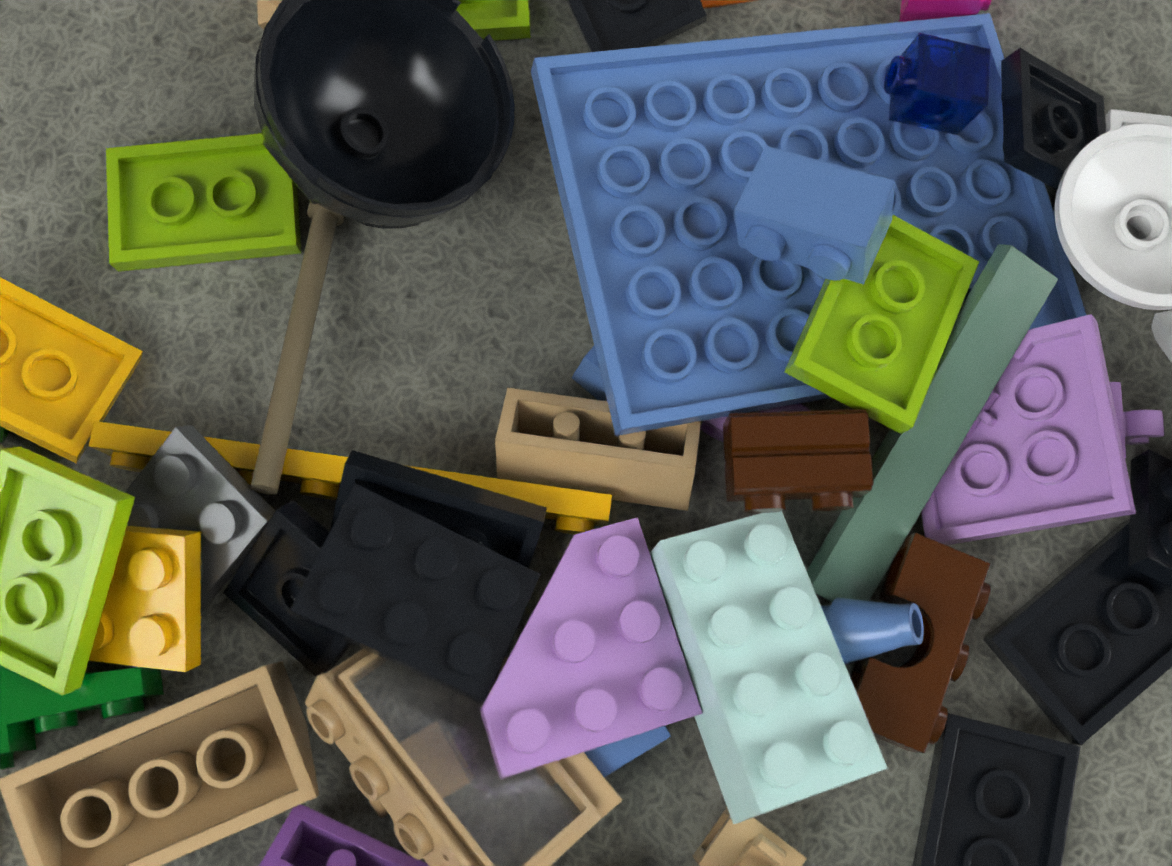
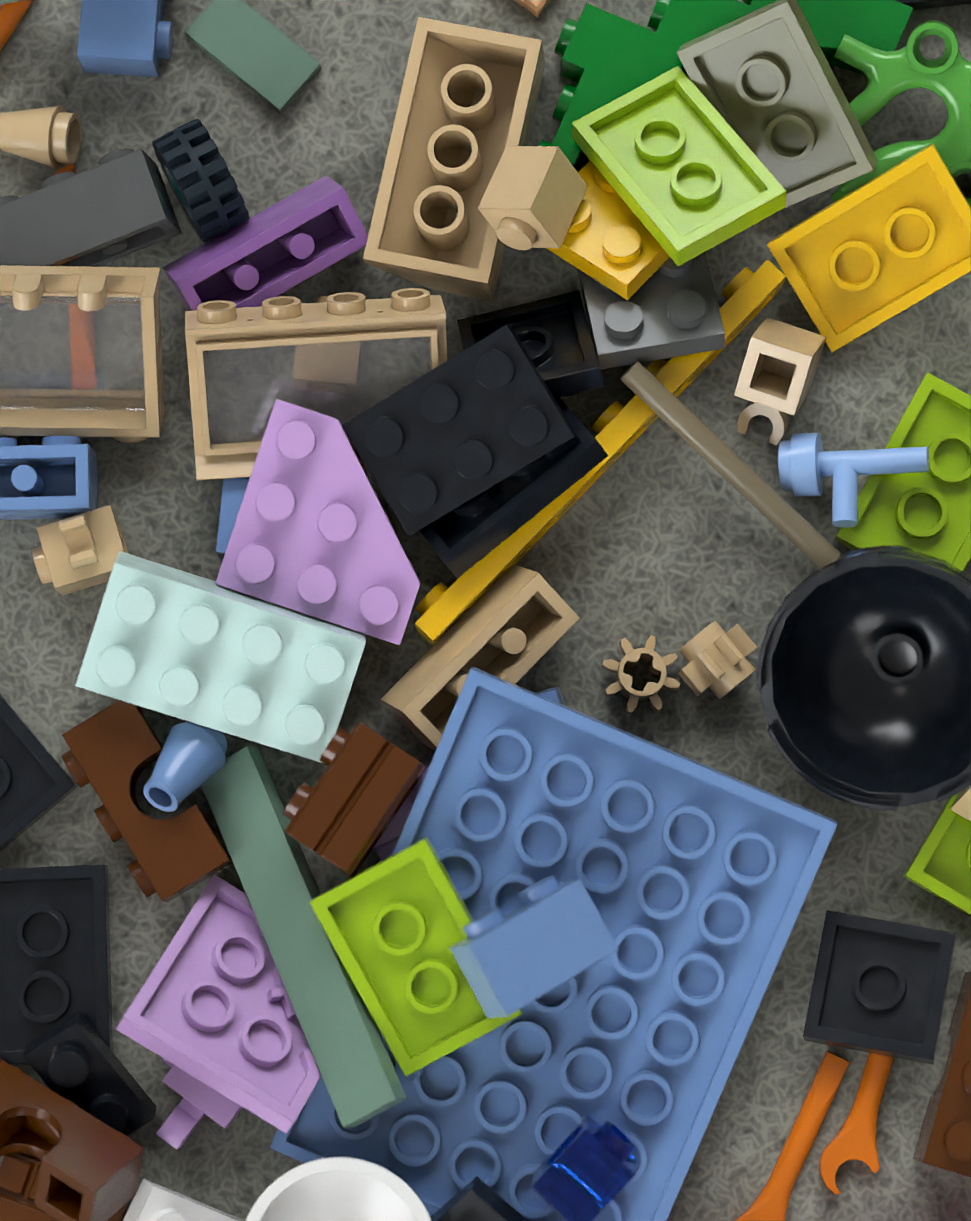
camera: 125 degrees right, 5 degrees up
(154, 678) = (532, 197): none -> tan brick
(187, 374) = (777, 374): none -> tan brick
(252, 306) = (805, 464): none -> light blue piece
(462, 267) = (717, 660): none -> tan gear
(526, 302) = (624, 681): none -> tan gear

